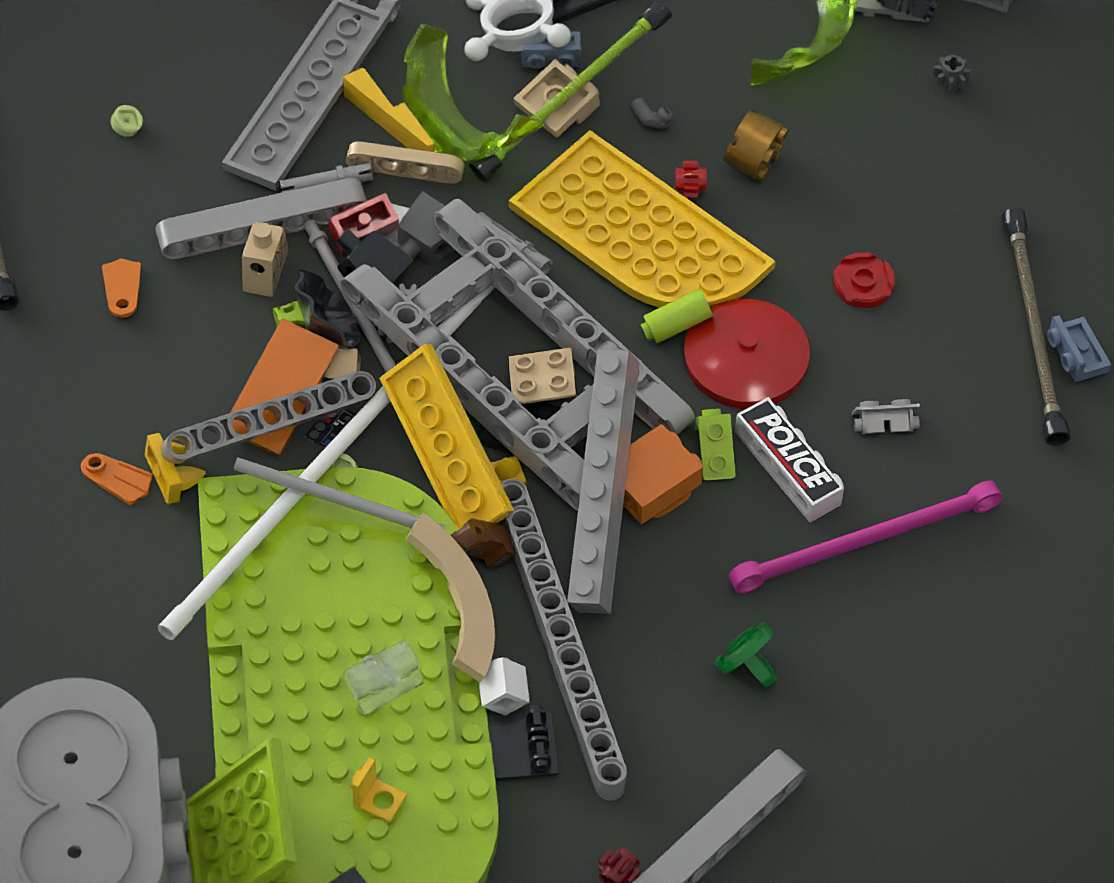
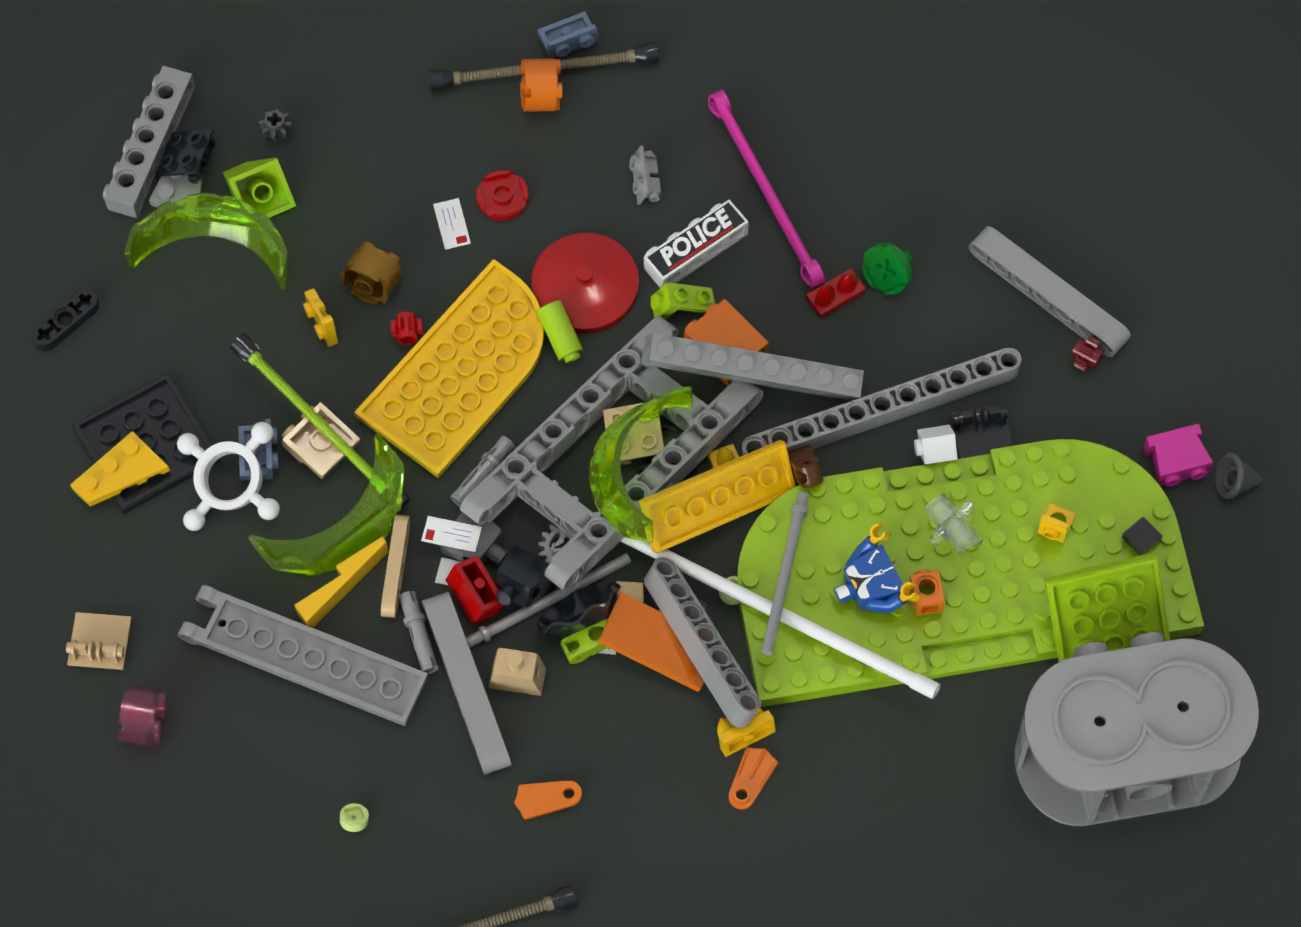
camera: 90 degrees left, 10 degrees up
(295, 654) = (929, 603): none -> orange brick
(322, 587) = (873, 578): none -> blue torso
(429, 199) = (451, 533): none -> white sticker
(468, 592) = (862, 469): tan tile -> none
(496, 332) = (605, 468): none -> clear neon green windscreen
(649, 118) = (331, 367): dark grey arm -> none
(706, 102) = (325, 326): none -> yellow wing
(722, 604) = (835, 293): none -> red tile
(829, 234) = (451, 223): none -> white sticker
(866, 52) = (261, 185): none -> lime slope
(1002, 309) = (540, 85): none -> orange brick

